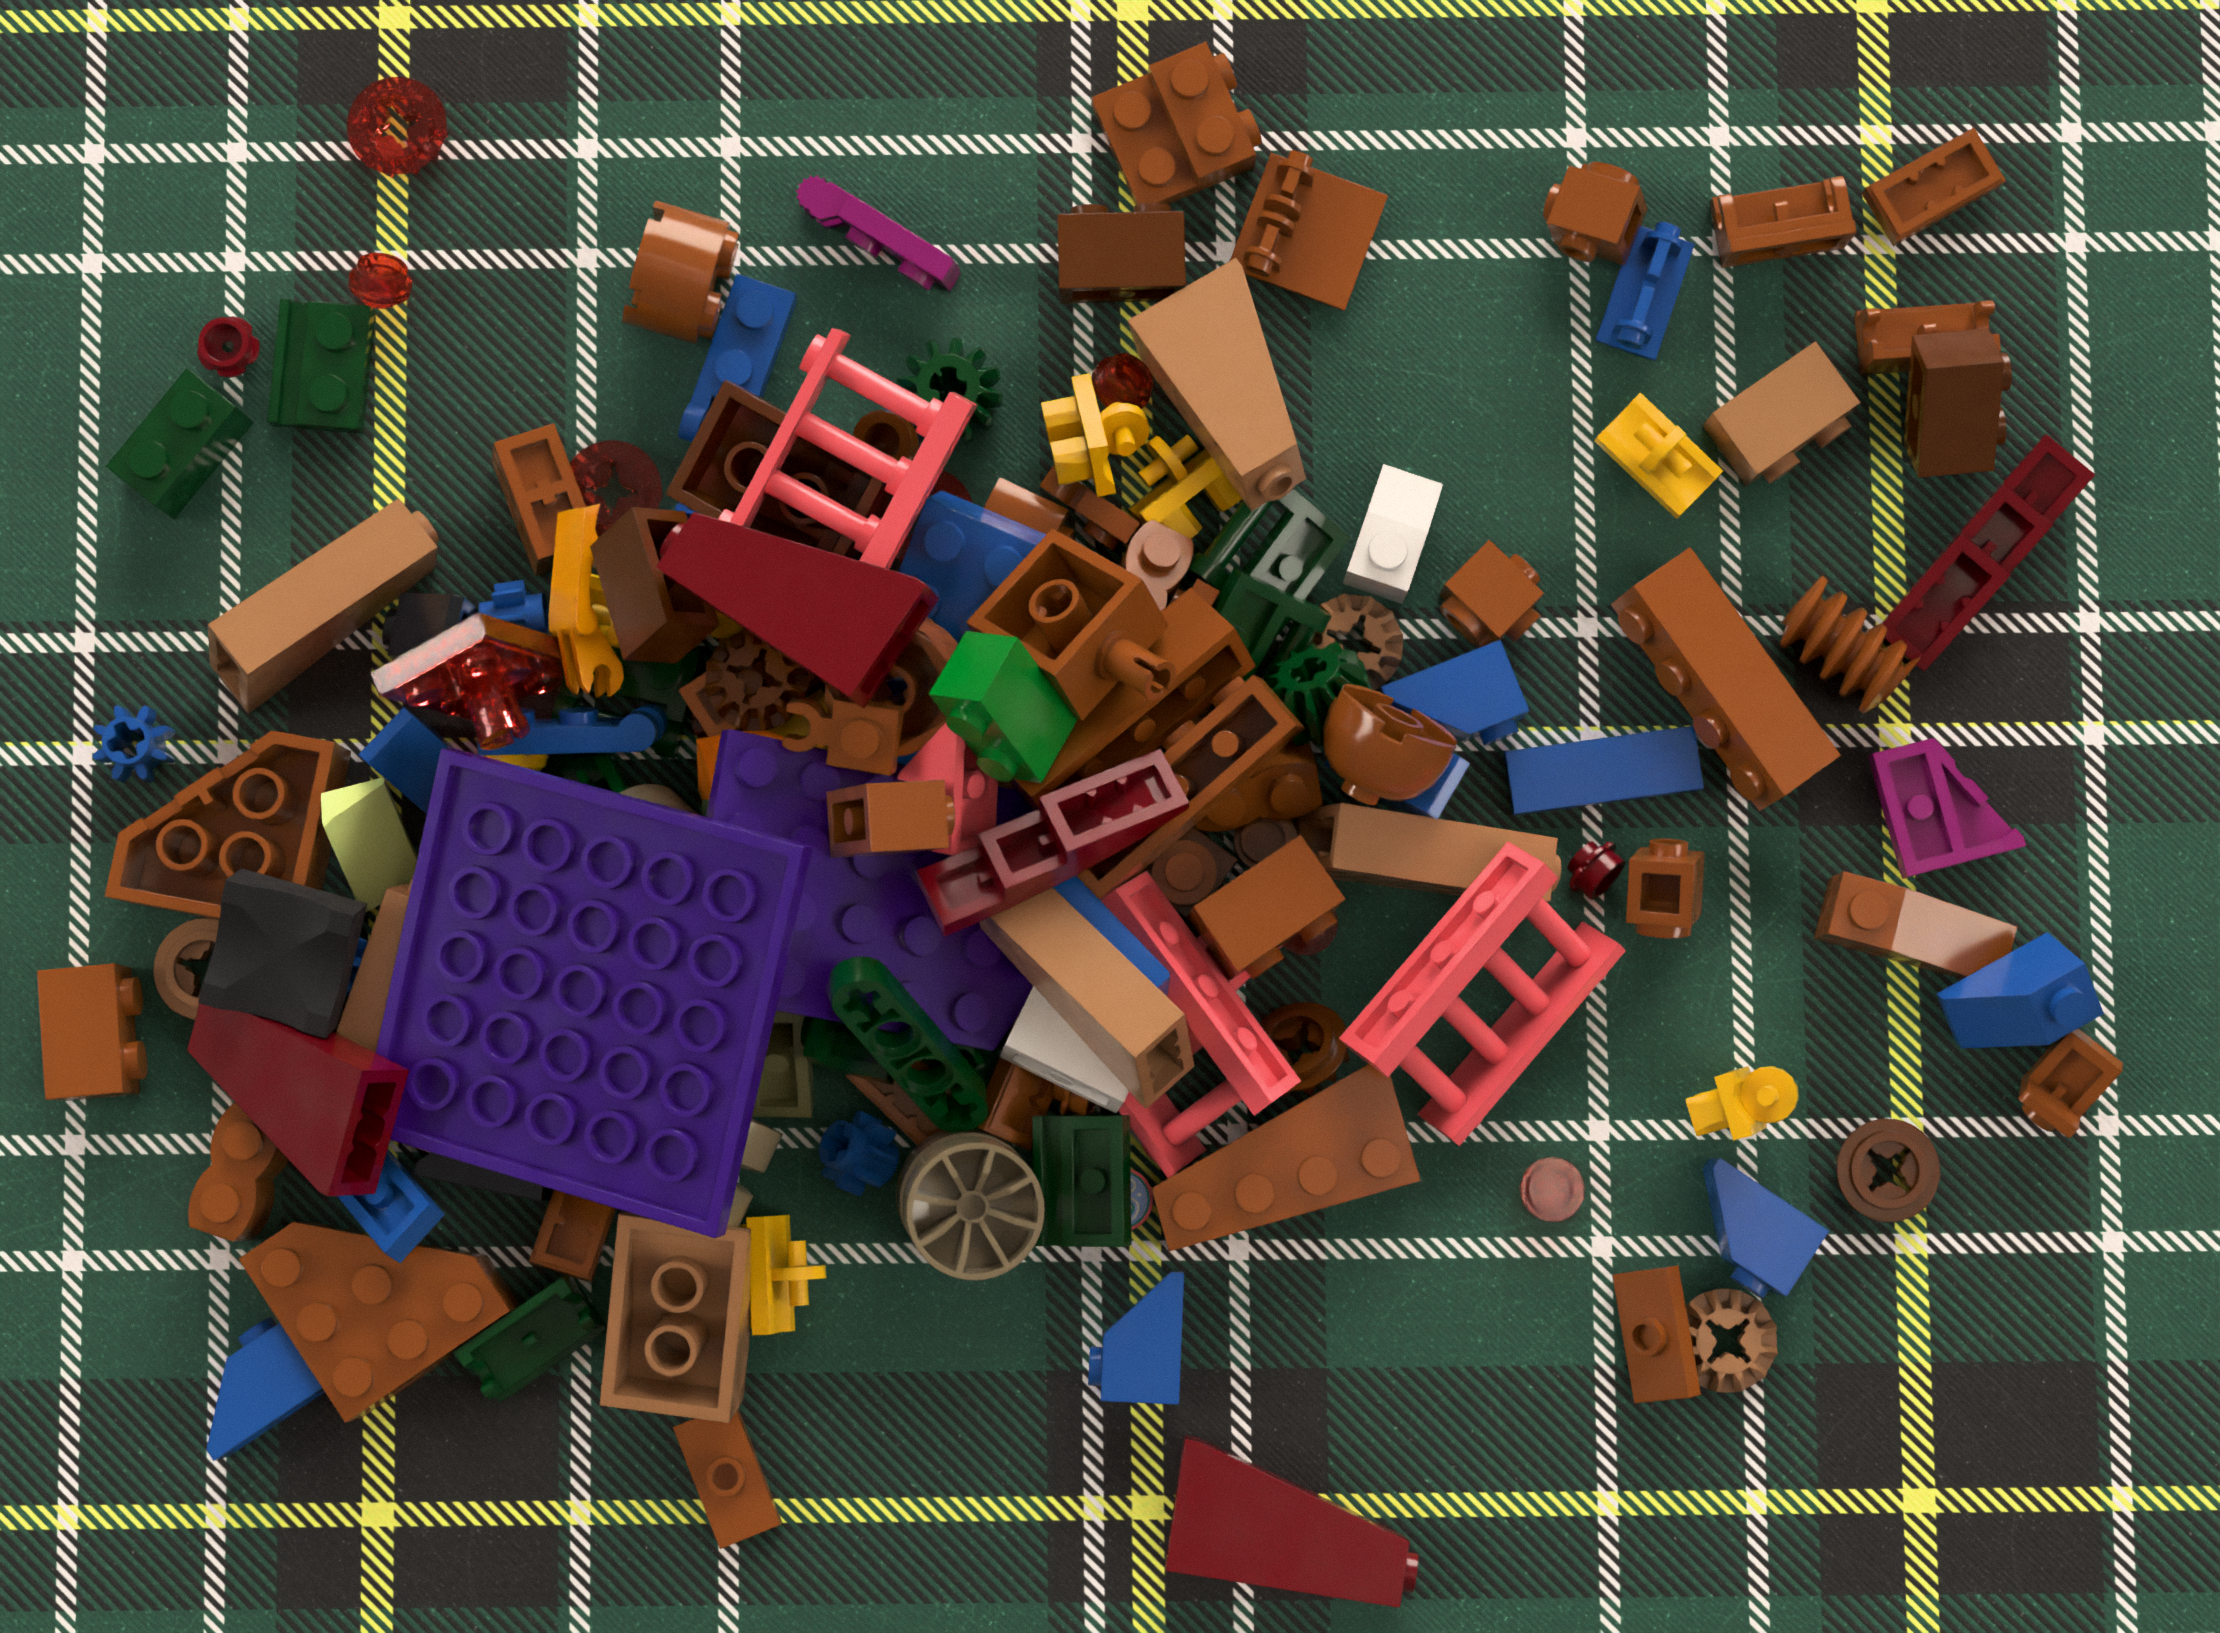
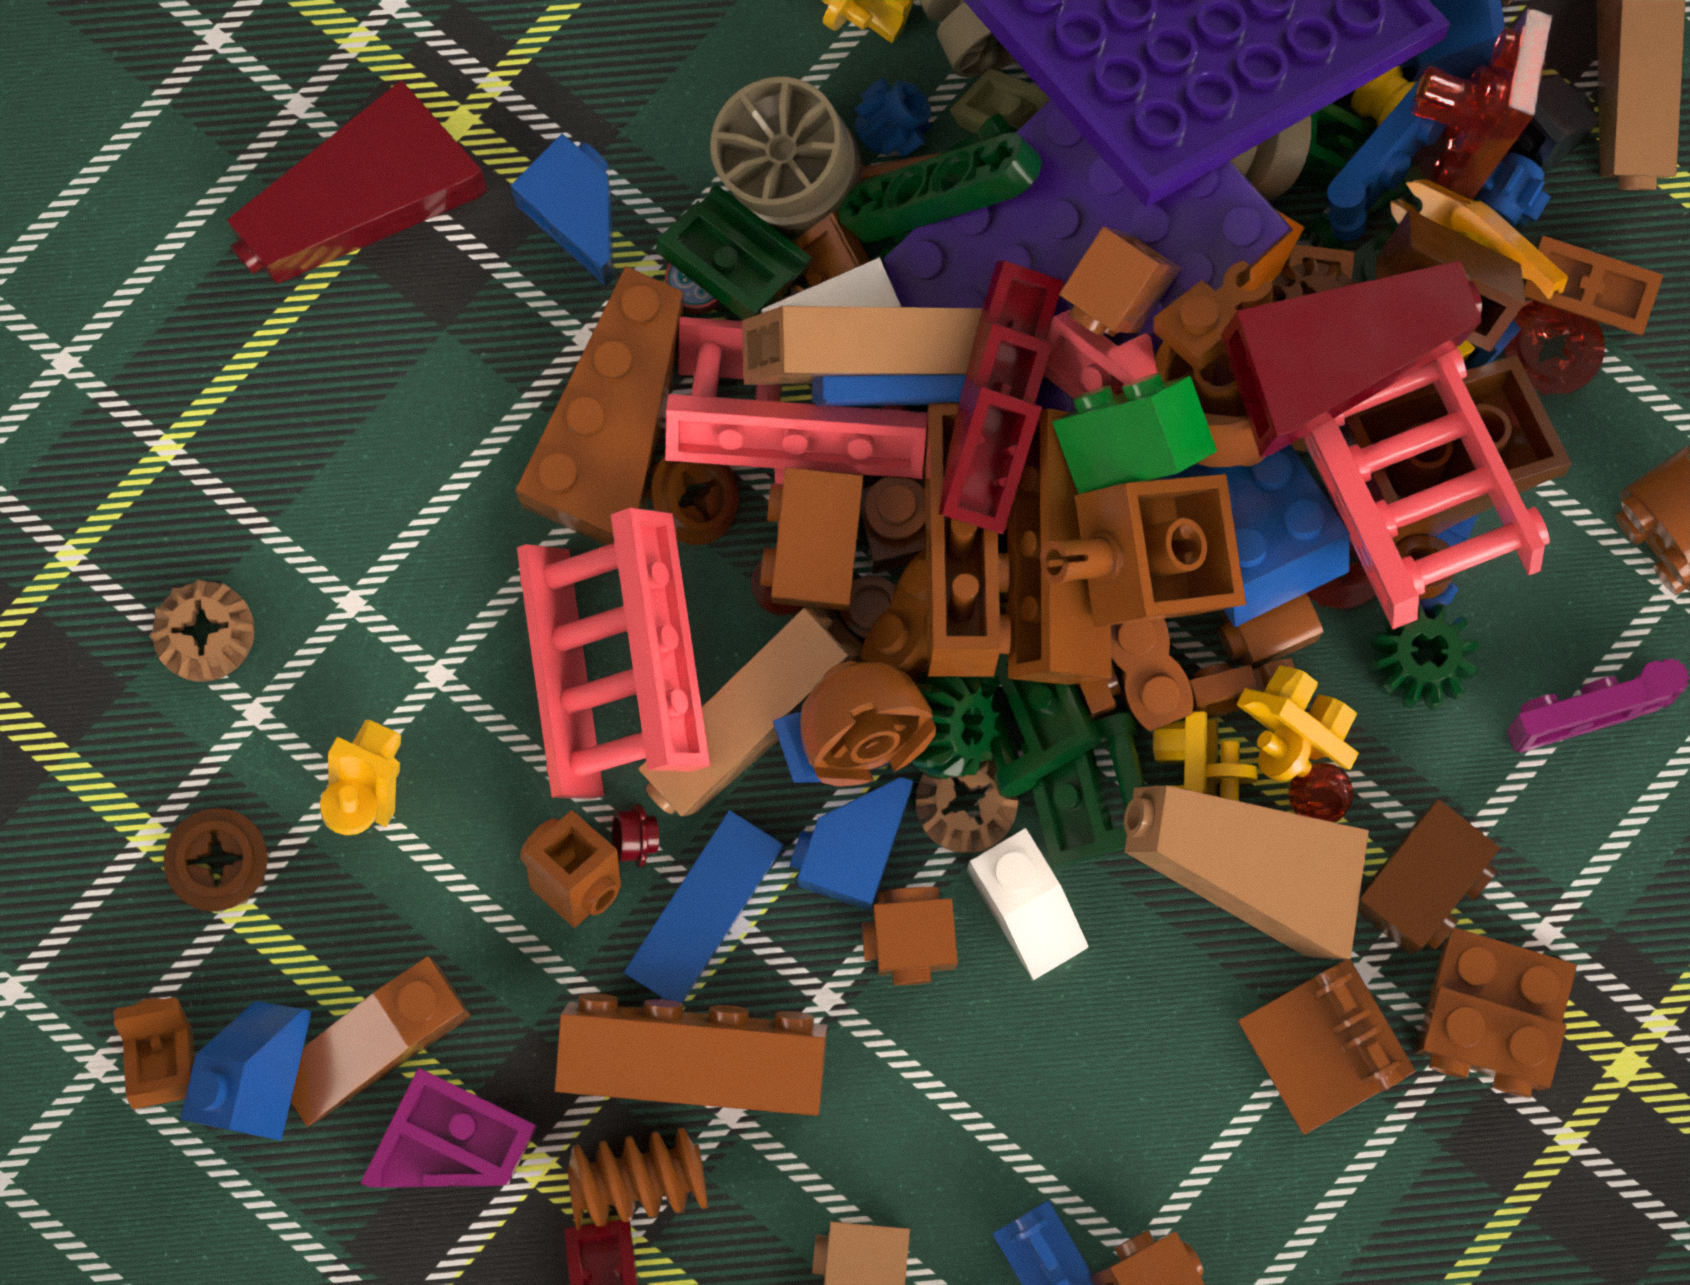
camera: 125 degrees right, 5 degrees down
(742, 346) = (1588, 533): blue plate -> none
(1552, 1189) = (425, 597): clear red plate -> none
(1656, 1334) = (252, 579): dark orange plate -> none
(1658, 455) = (912, 1160): yellow hips -> none
(1759, 1231) = (257, 721): blue slope -> none

